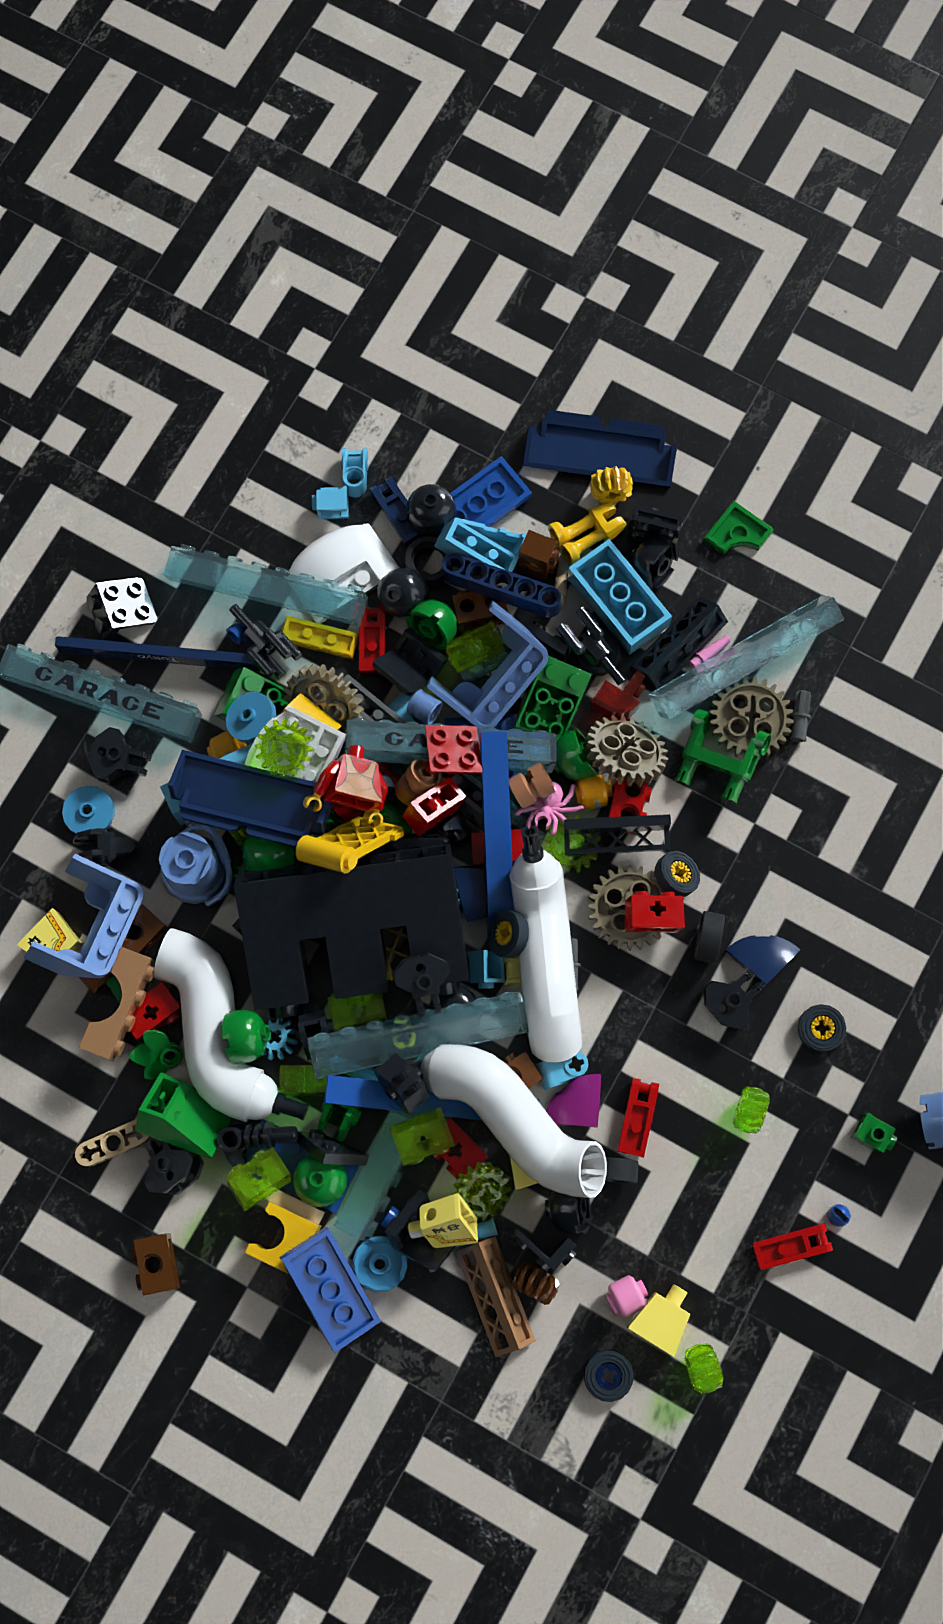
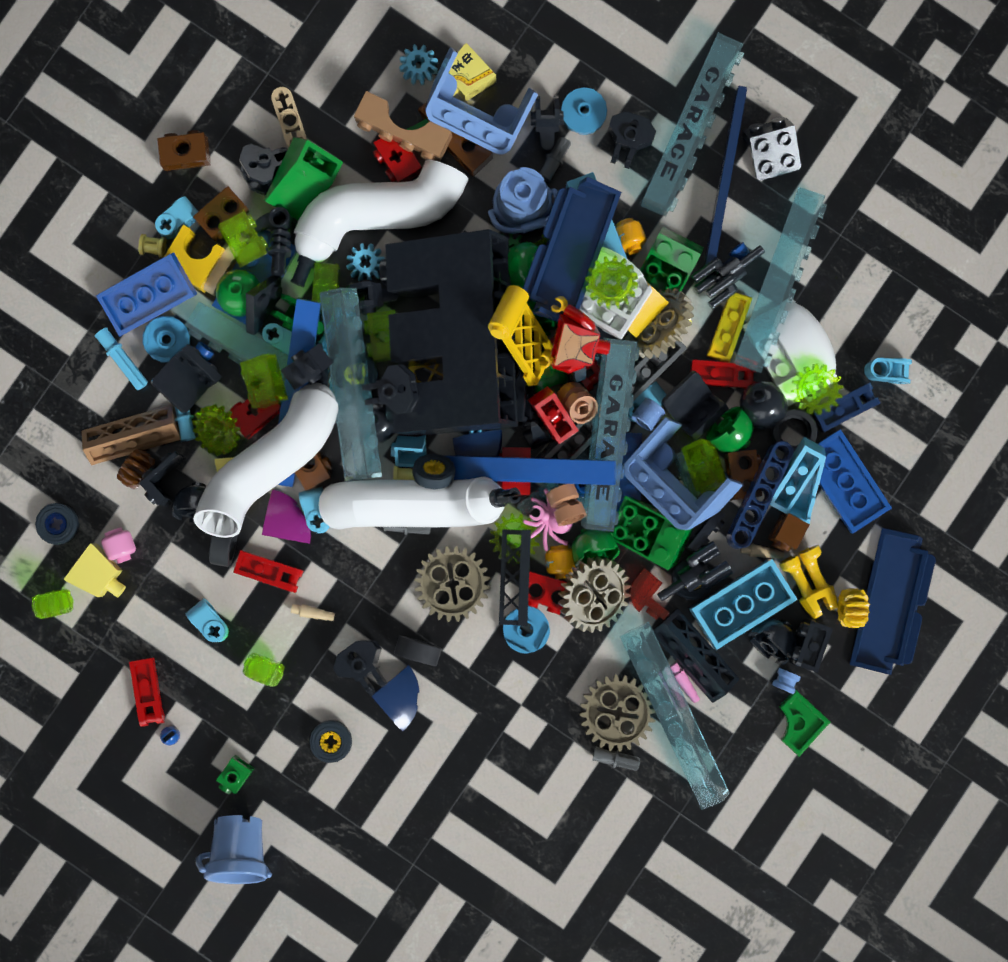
camera: 90 degrees right, 10 degrees up
(35, 1007) = (427, 62): none -> medium azure gear
(142, 837) = (555, 159): none -> dark grey axle
(152, 1054) = (361, 160): green plate -> none
(224, 1216) = (217, 210): none -> reddish brown brick
(233, 1260) = (176, 216): none -> medium azure piece
(237, 719) = (651, 266): dark azure plate -> none
(245, 1035) = (364, 235): green cylinder -> none
(270, 1291) = (152, 245): none -> light yellow bush
(331, 503) = (858, 346): medium azure window -> none
(369, 1120) = (283, 340): none -> medium azure piece
(370, 533) = (812, 397): none -> clear neon green gear
(407, 1316) = (121, 358): none -> medium azure axle
(430, 509) = (842, 437): black cylinder -> none
(446, 1223) = (189, 395): light yellow torso -> none
(452, 750) = (601, 435): hinge -> none
(641, 919) = (440, 589): red brick -> none
(679, 863) = (483, 638): black bush -> none
(679, 1063) = (312, 612): none -> tan animal
(684, 817) = (530, 642): none -> dark azure plate
(695, 547) = (786, 680): none -> medium blue wheel
(699, 1185) = (204, 618): none -> medium azure piece
(739, 772) = (586, 657): green connector -> none

